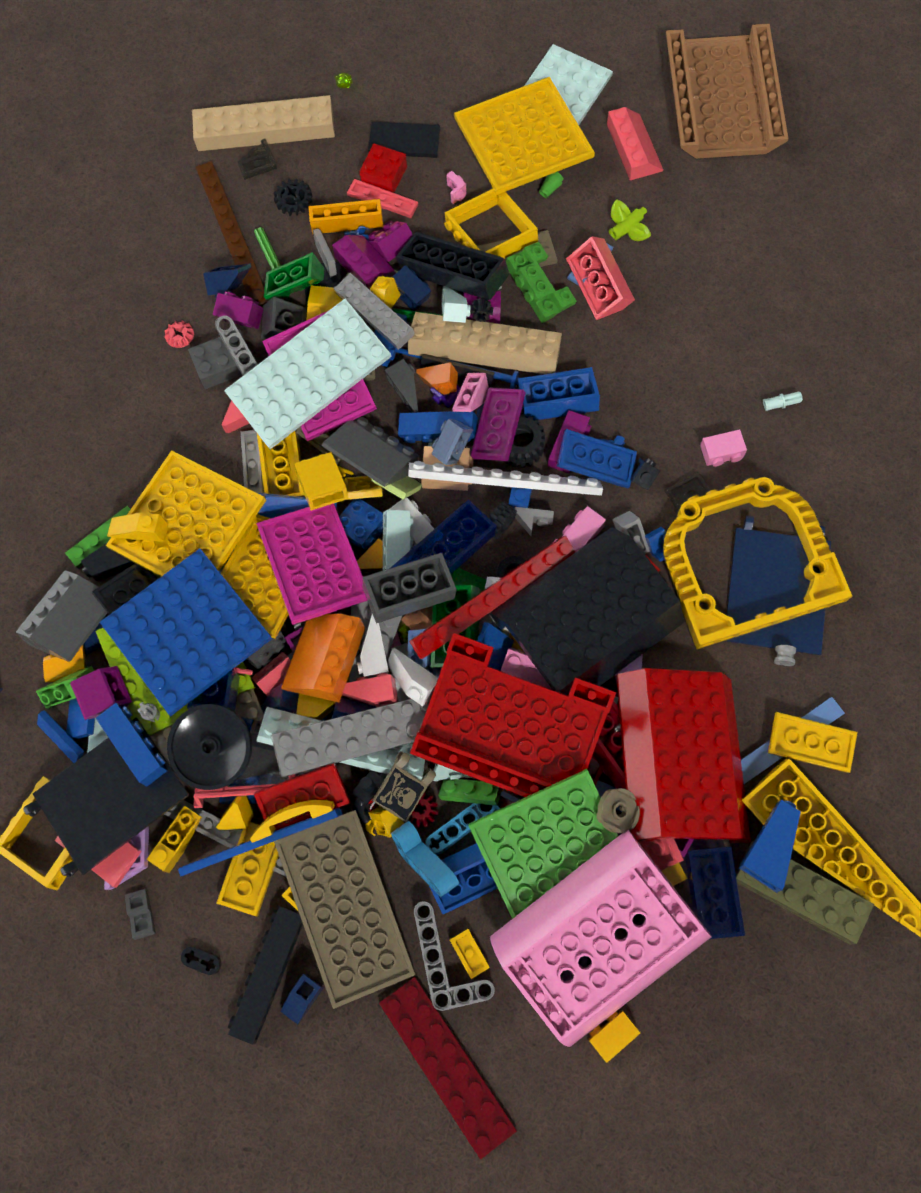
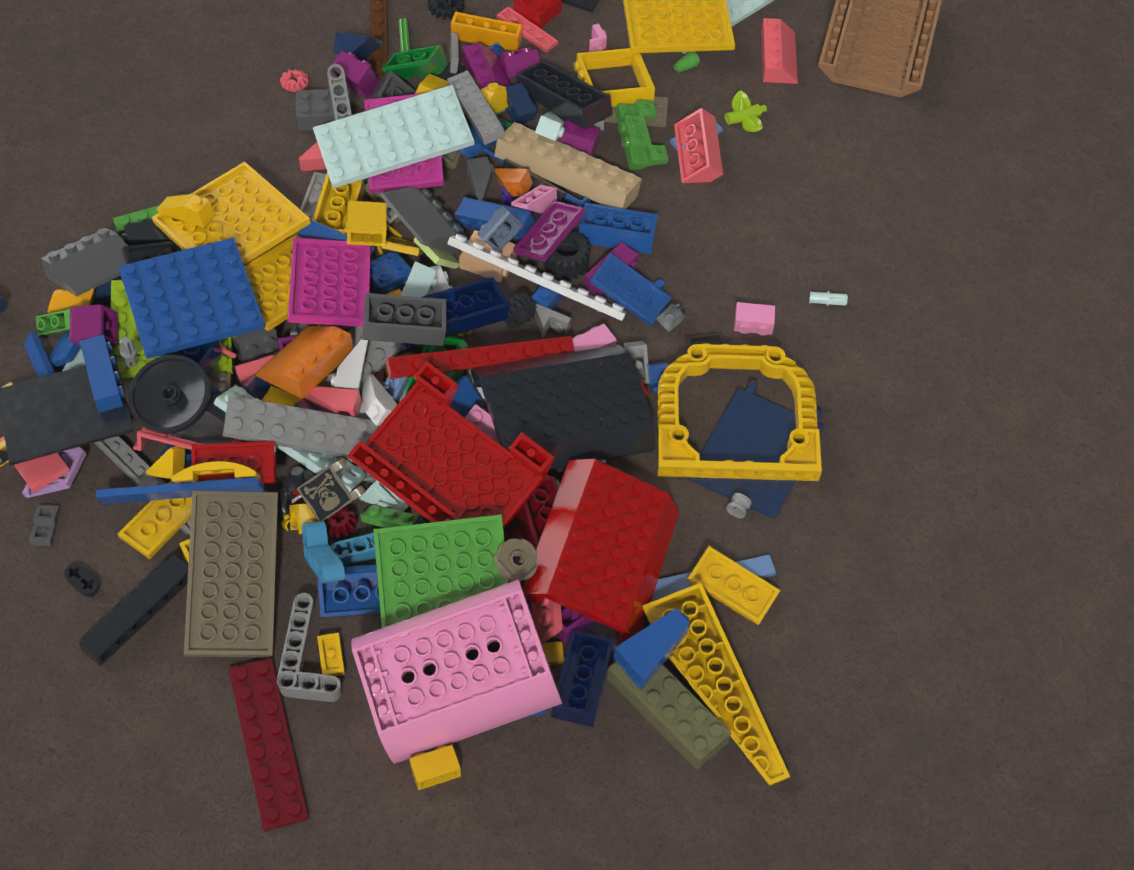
camera: 10 degrees right, 15 degrees down
(175, 840) = (103, 472): yellow slope -> none
(301, 998) = (159, 637): dark blue slope -> none
(481, 310) = (574, 136): black gear -> none

